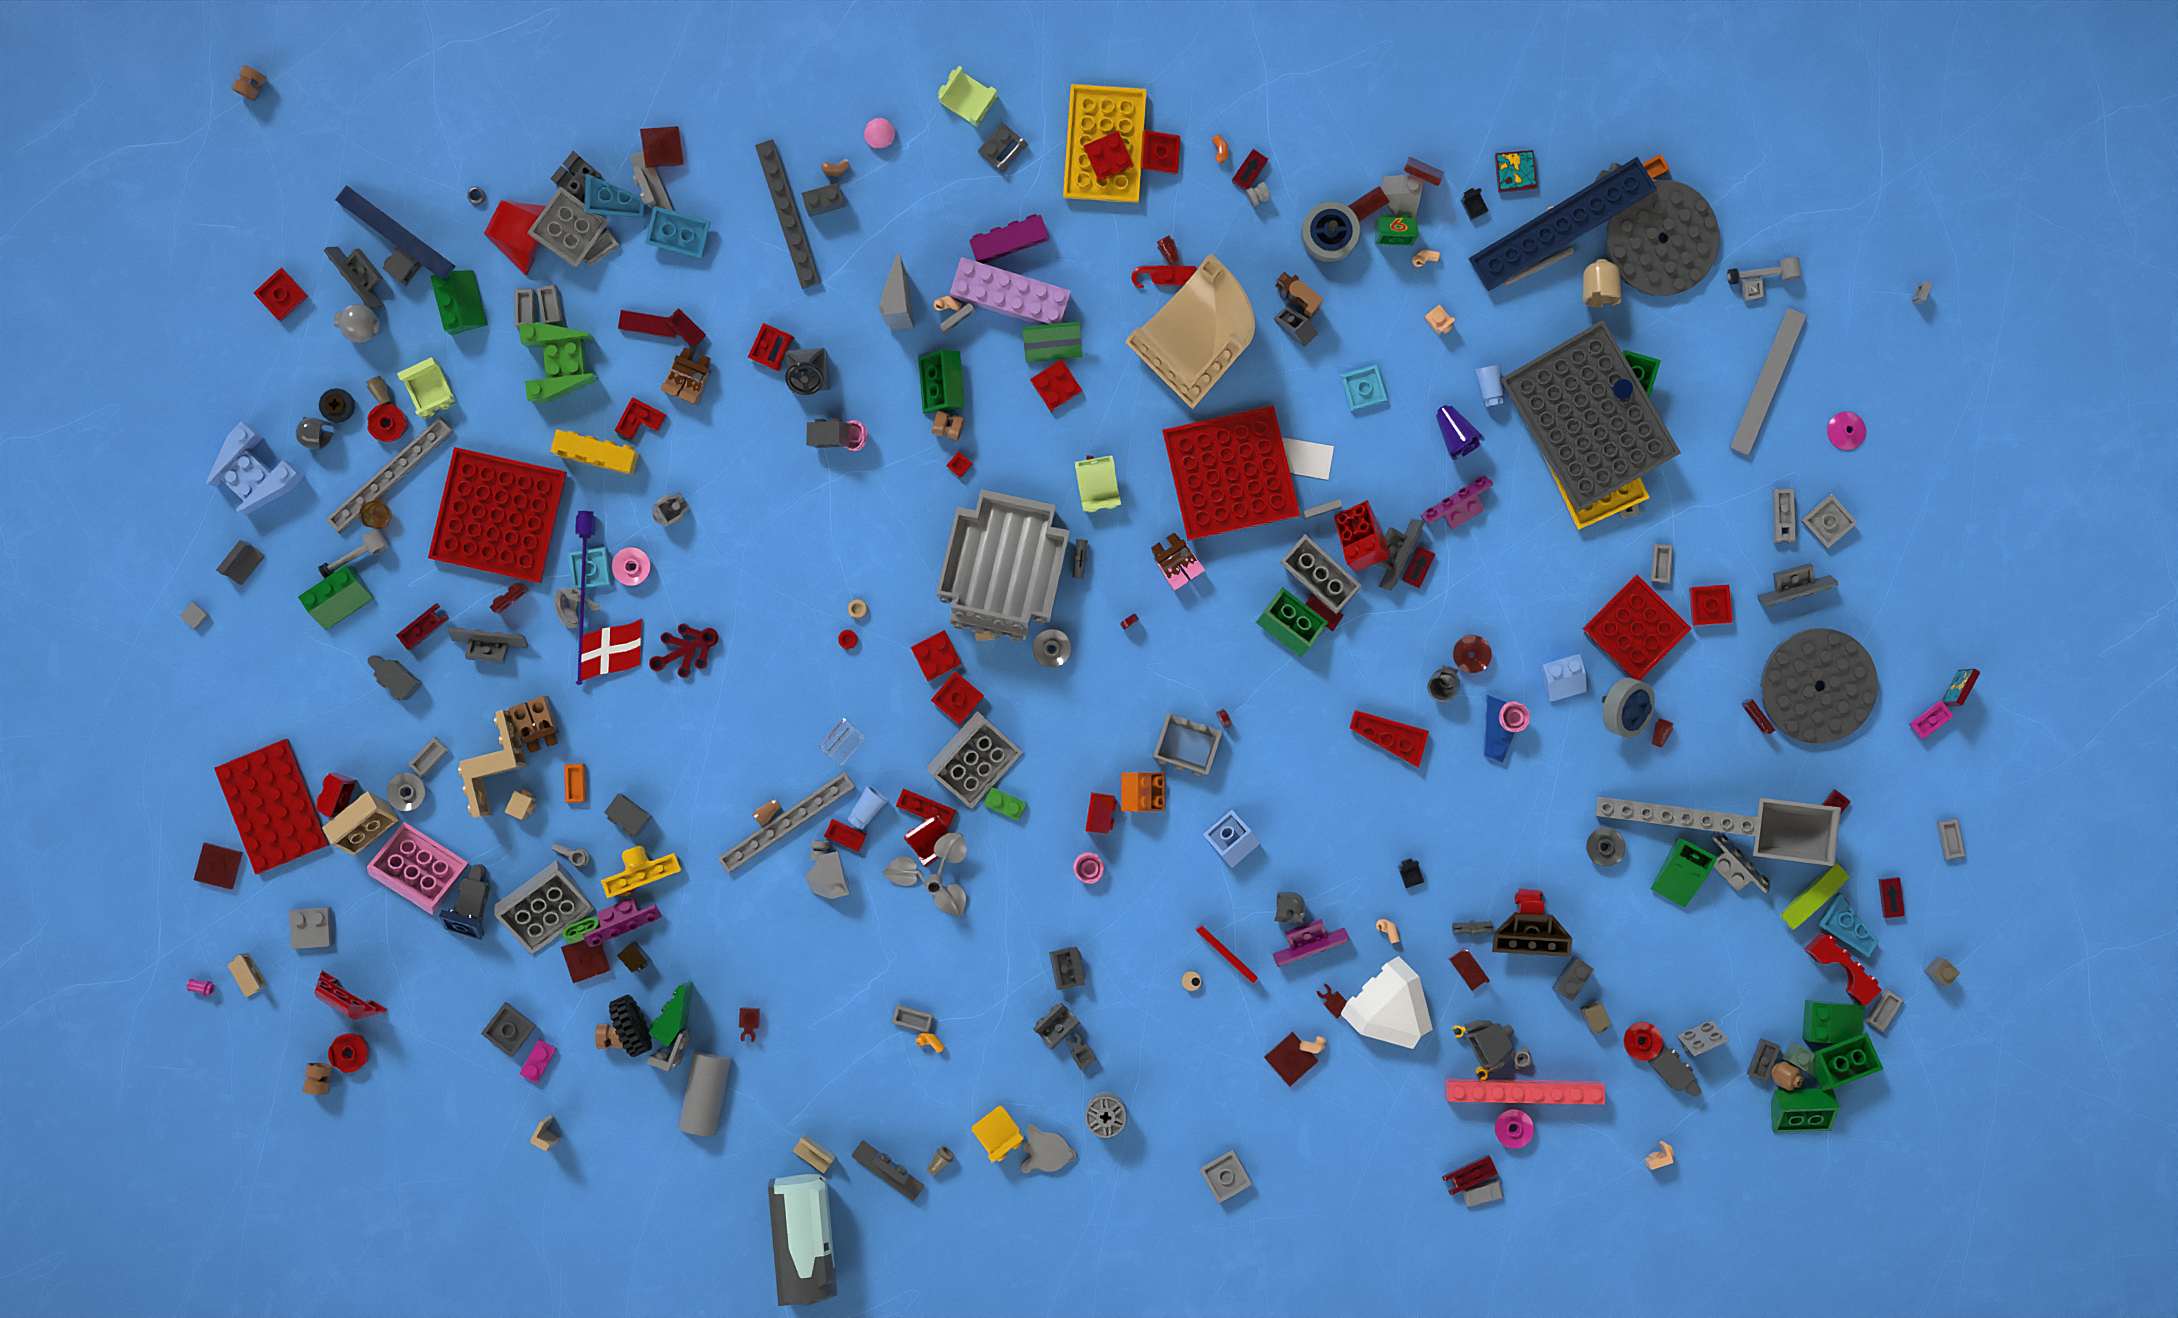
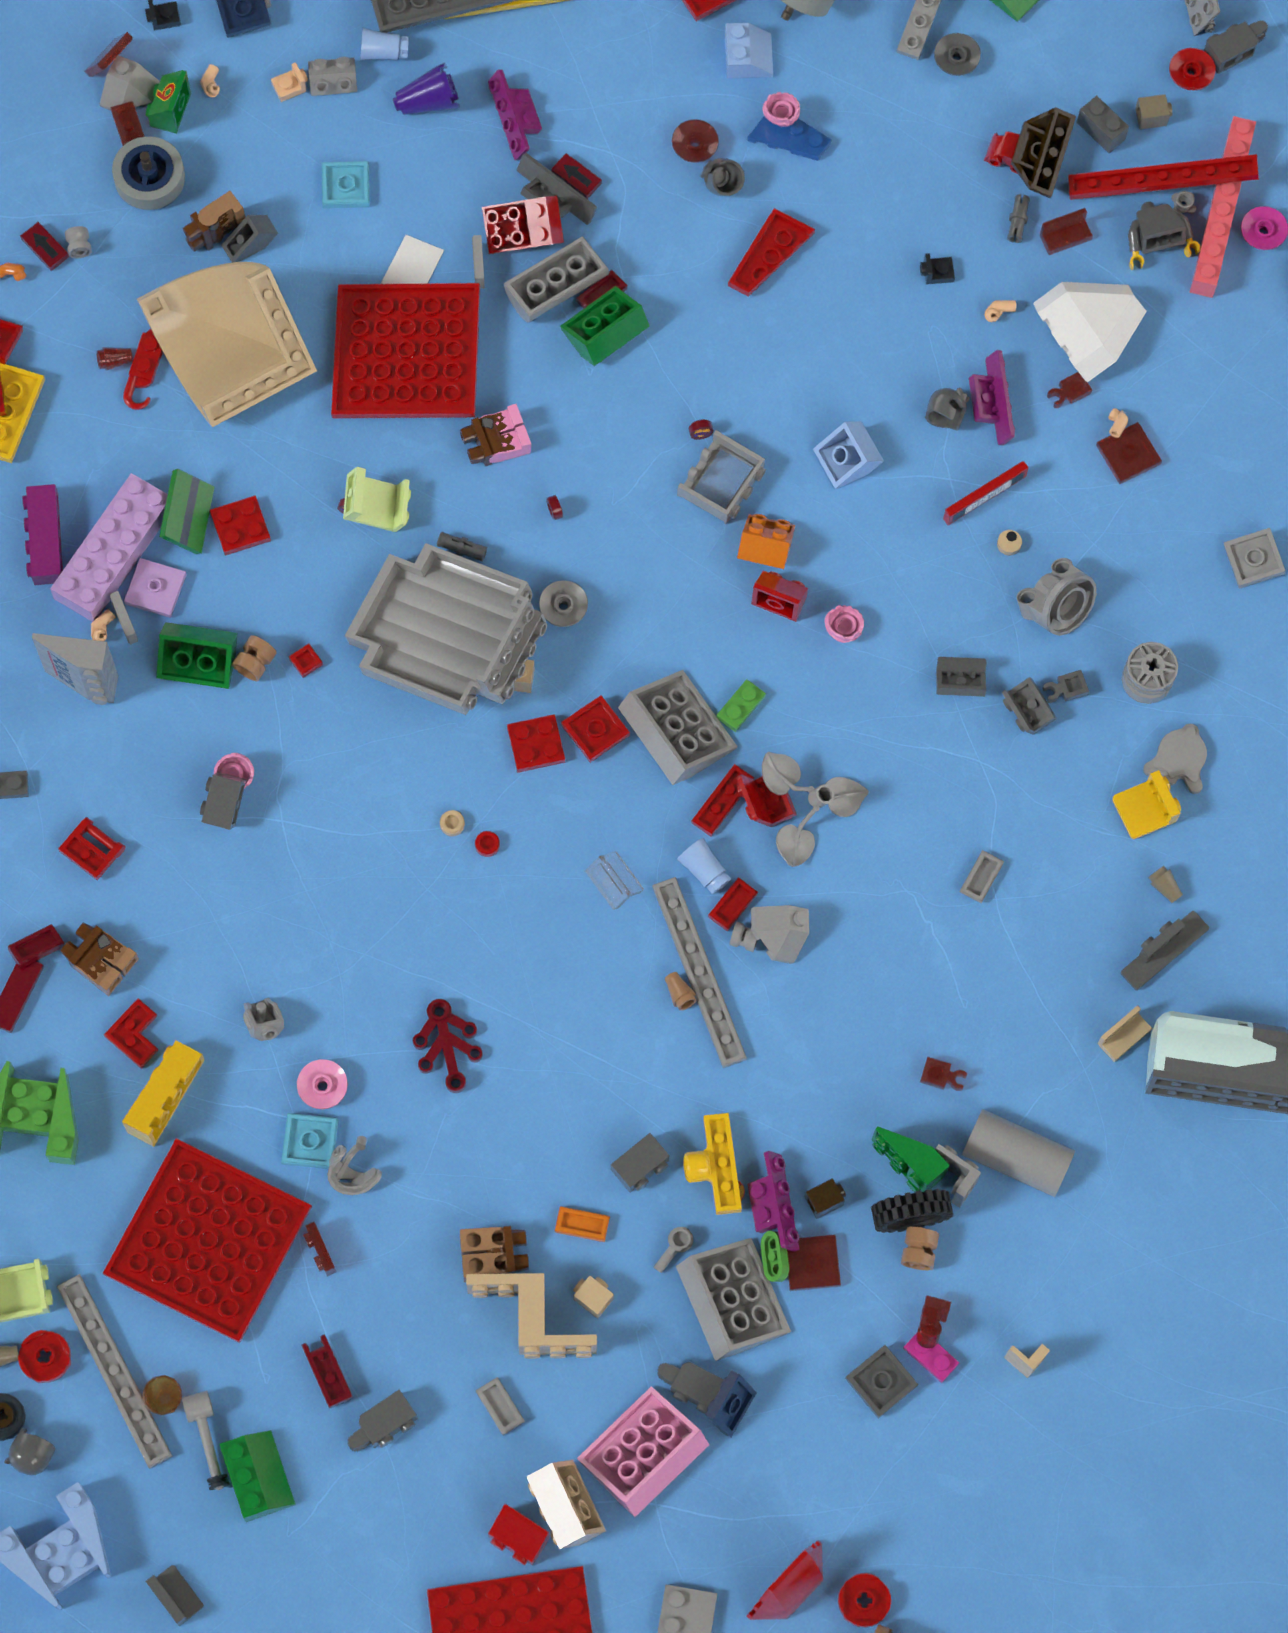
camera: 85 degrees left, 15 degrees down
(397, 792) = (538, 1428): light grey dish -> none
(487, 645) = (373, 1291): dark grey bracket -> none
(558, 1055) = (929, 1326): none -> clear red leg
(607, 648) = (419, 1140): flag -> none
(807, 371) = (137, 806): piece -> none
(930, 1039) = (1012, 860): light orange arm -> none
(989, 335) = (155, 587): none -> lavender plate
(1149, 1030) = (1059, 598): none -> light grey piece
(1455, 352) = (332, 76): none -> light grey bracket
(1534, 1039) = (1163, 177): none -> red plate

